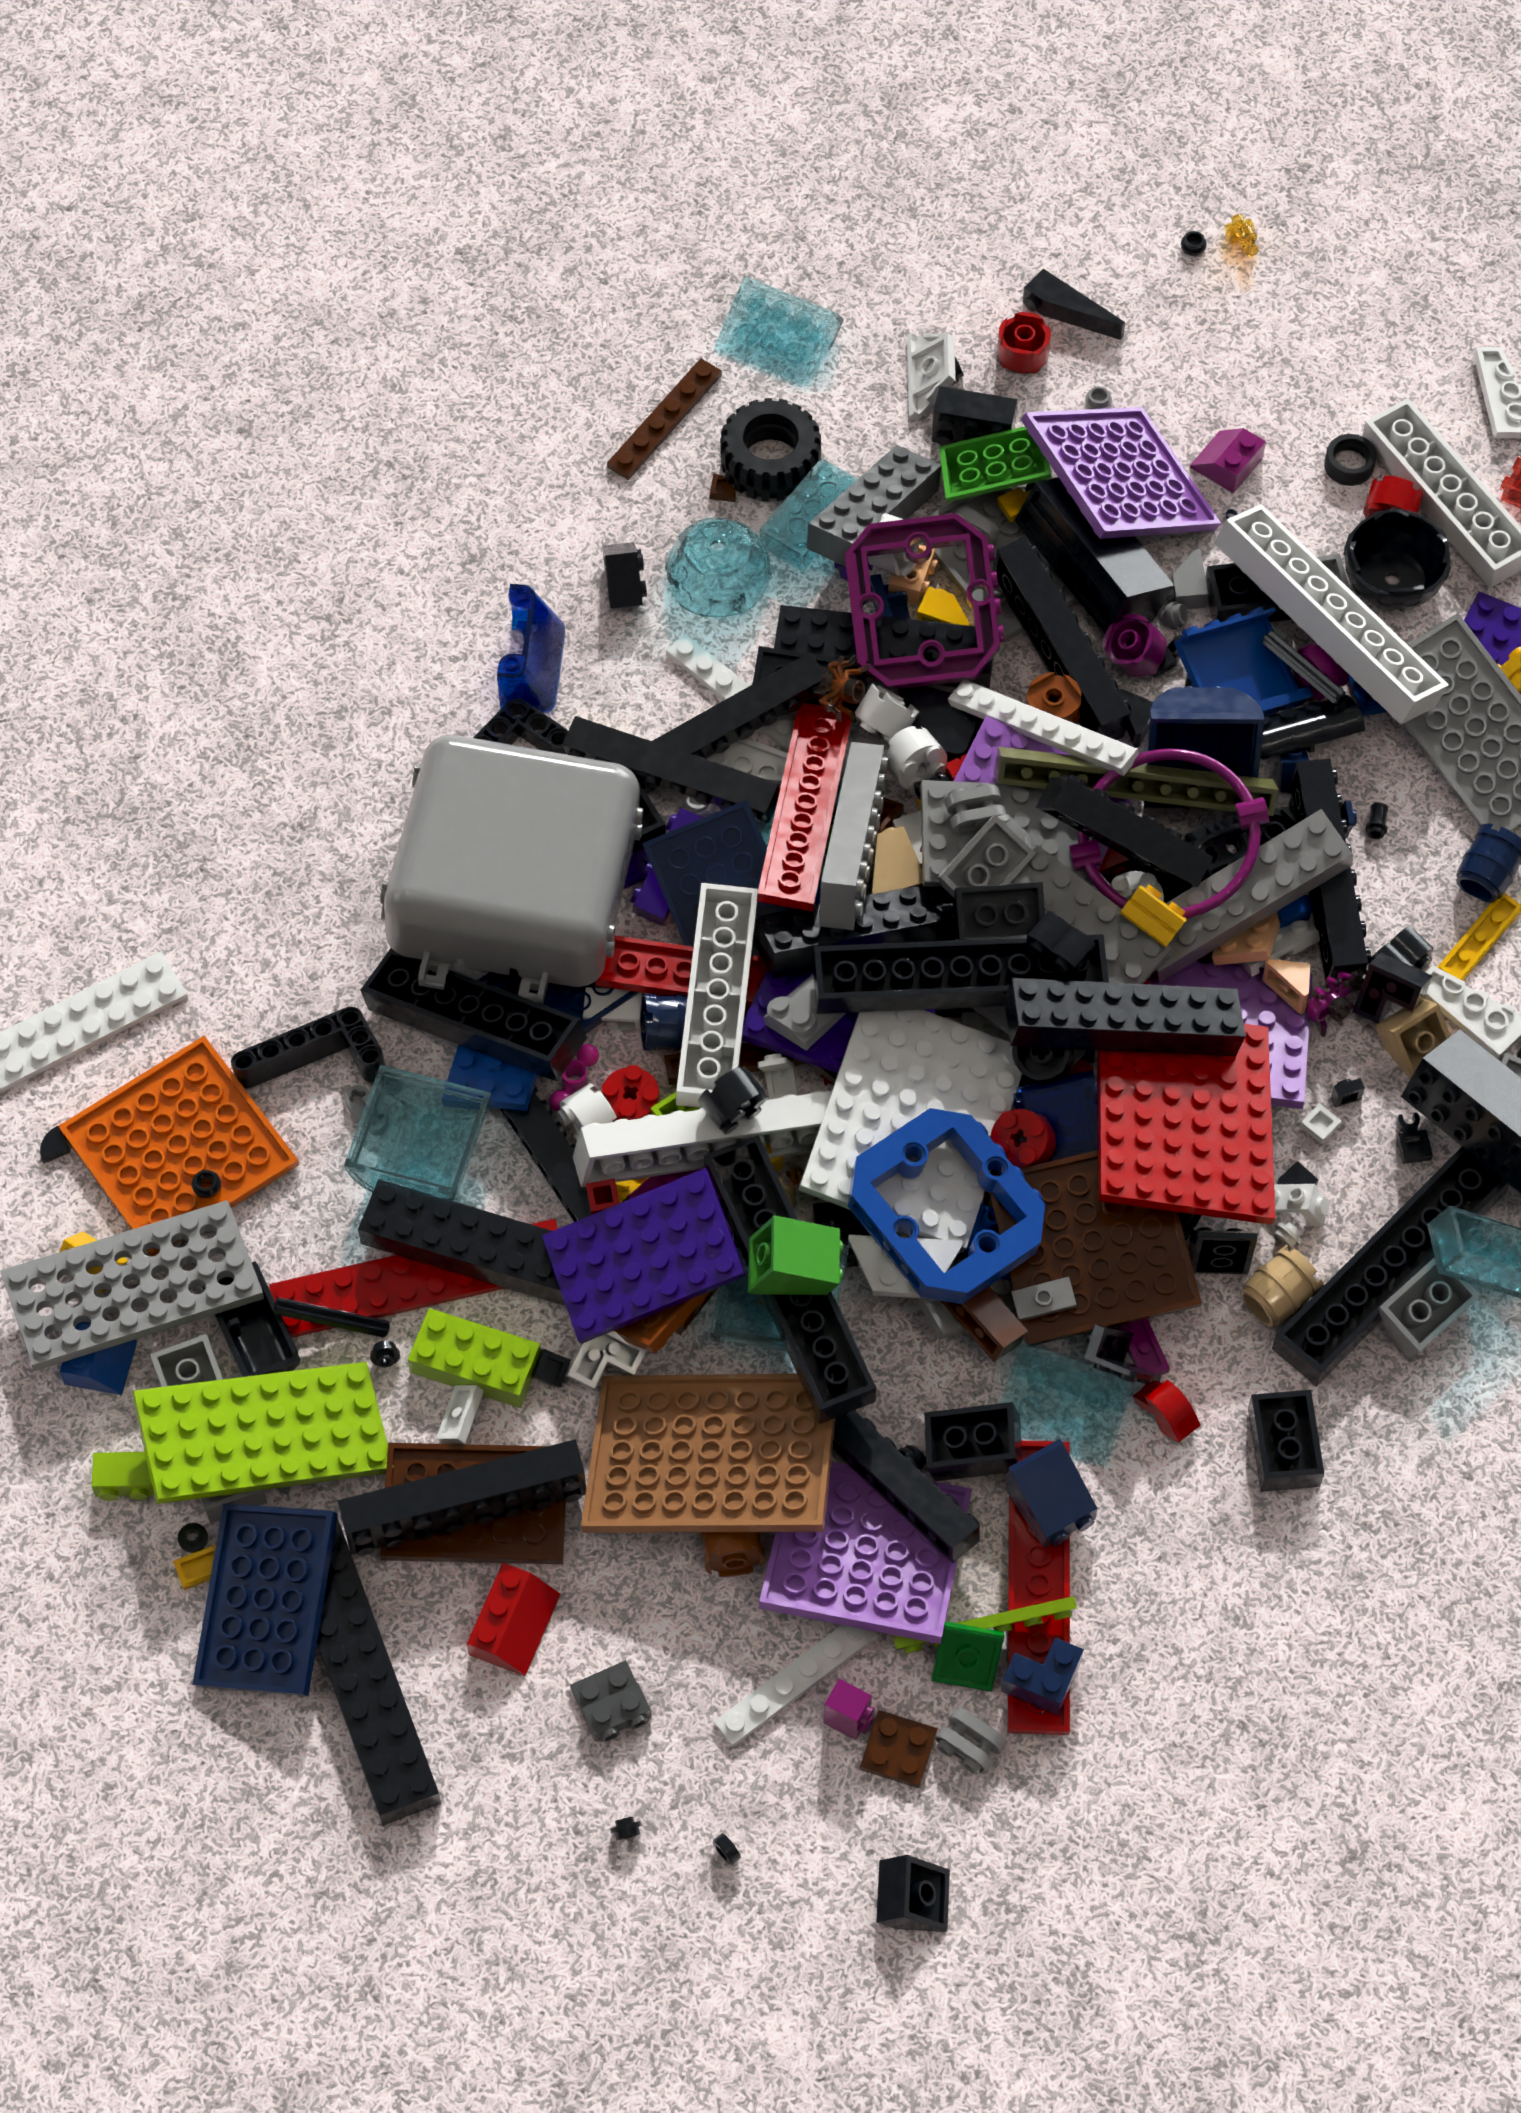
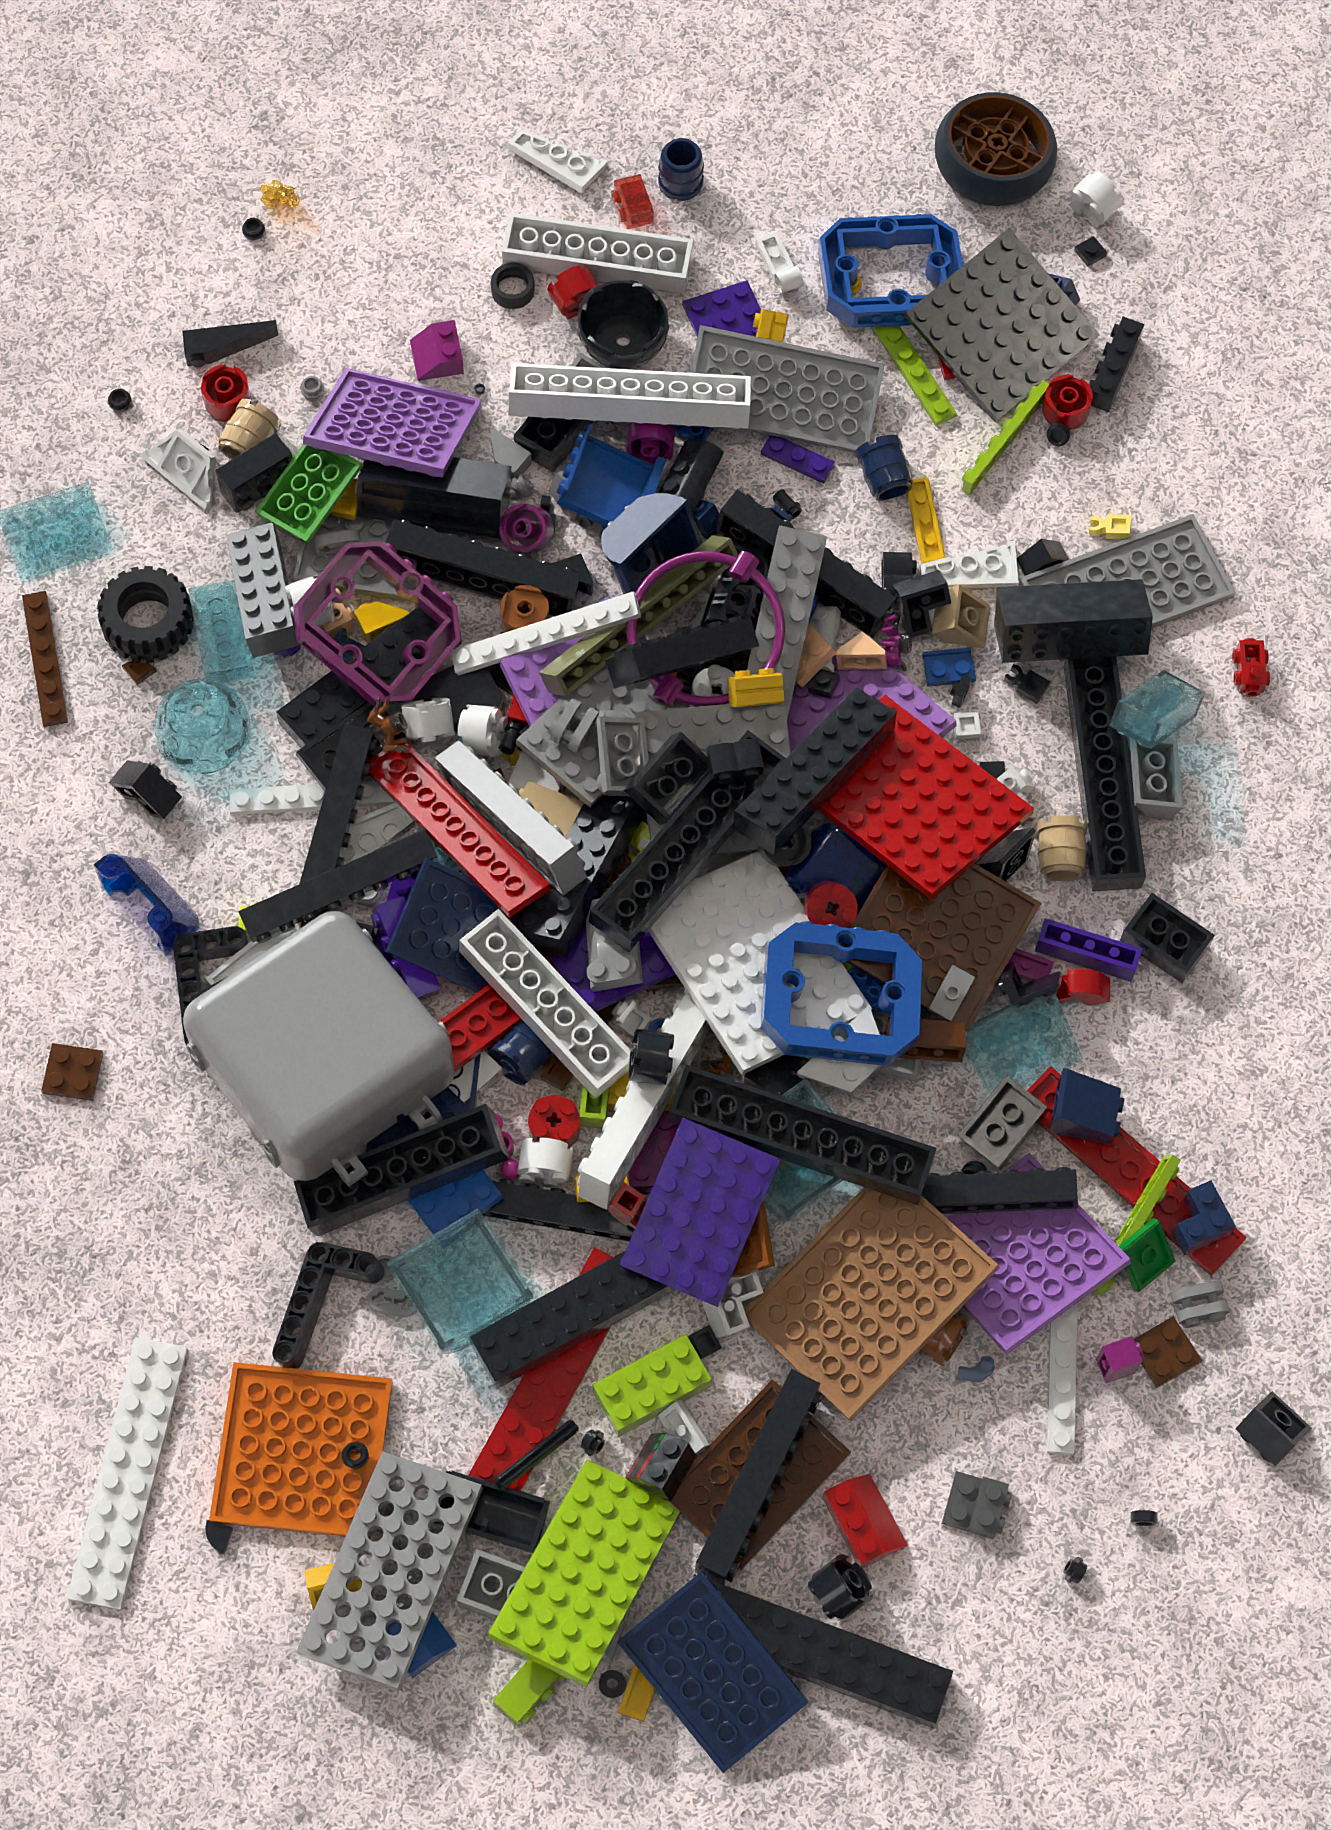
camera: 50 degrees left, 5 degrees up
(338, 726) = (72, 1072): none -> reddish brown plate
(411, 1423) = (662, 1465): none -> black slope
(431, 1644) = (841, 1587): none -> black brick
(730, 1609) = (978, 1372): none -> sand blue arm
(794, 1258) = (803, 1119): bright green slope -> none
(940, 281) = (119, 400): none -> black plate
(1008, 380) = (247, 428): none -> tan piece
(1207, 1385) = (1088, 950): none -> dark purple brick
(1235, 977) = (824, 683): none -> black plate
(1303, 667) = (647, 446): black axle -> none
(1358, 1061) = (948, 666): none -> blue plate
(1430, 795) = (798, 458): none -> dark purple plate

